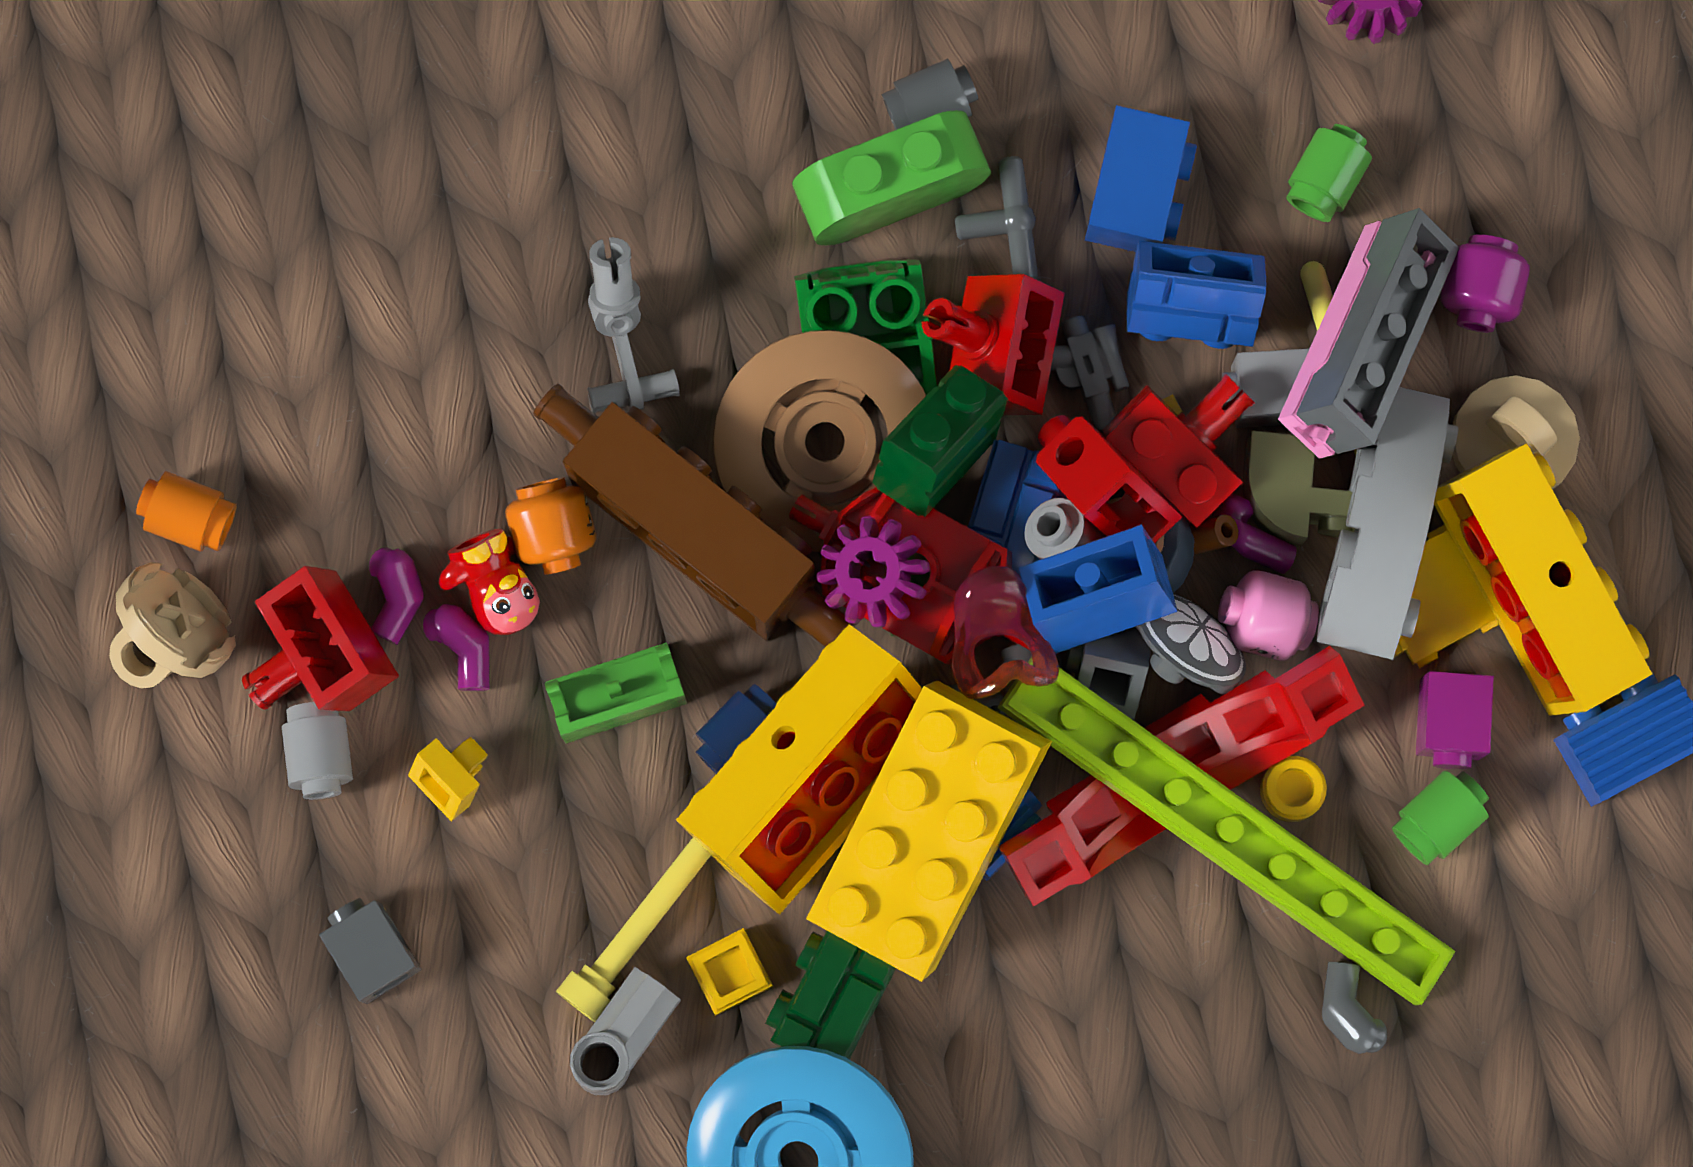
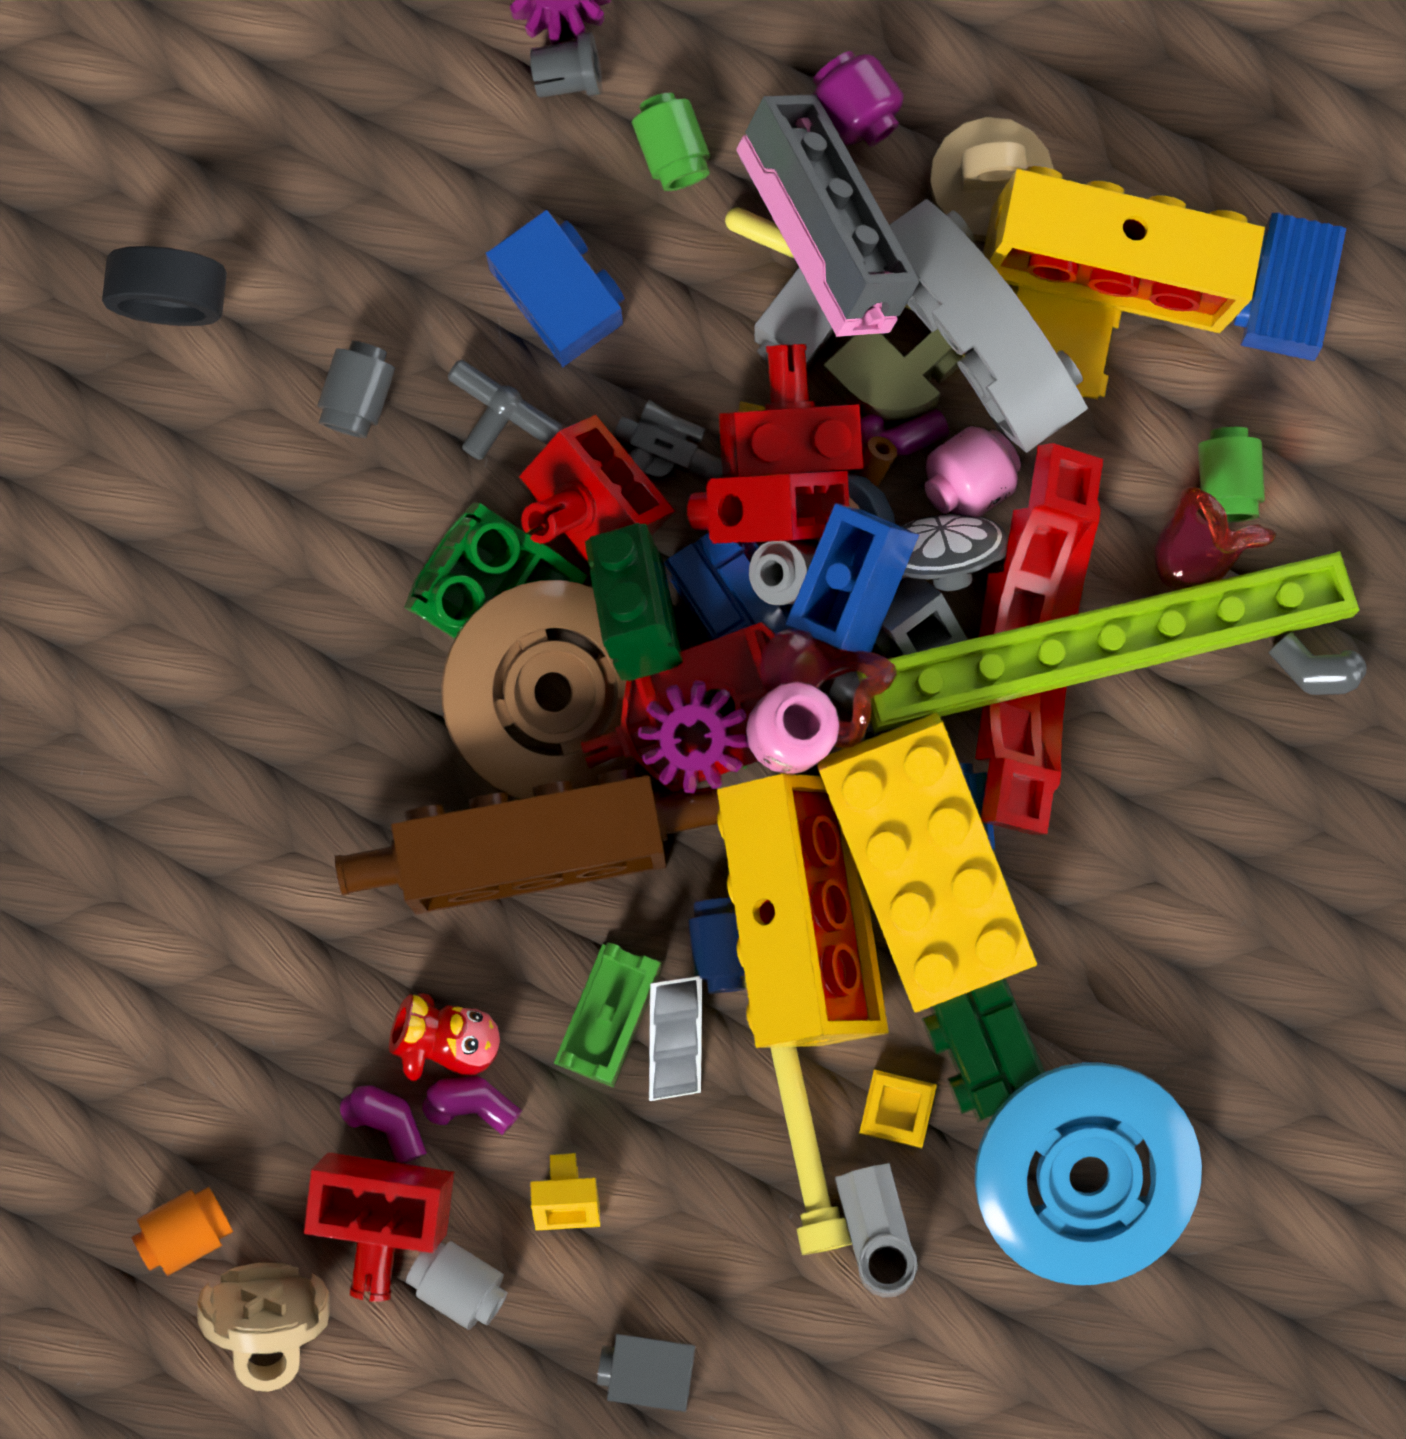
camera: 45 degrees left, 0 degrees up
(551, 525) = (436, 955): orange head -> none
(615, 313) = (310, 764): light grey pin -> none
(638, 756) = (675, 1038): none -> sticker
(891, 177) = (392, 469): bright green brick -> none
(940, 638) = (792, 728): none -> bright pink head
(1195, 294) = (681, 318): blue brick -> none
(1293, 789) = (1117, 567): yellow tile -> none
(1317, 46) = (567, 67): none -> dark grey bush
(1360, 835) = (1201, 550): none -> clear red piece
(1454, 718) = (1166, 403): magenta brick -> none

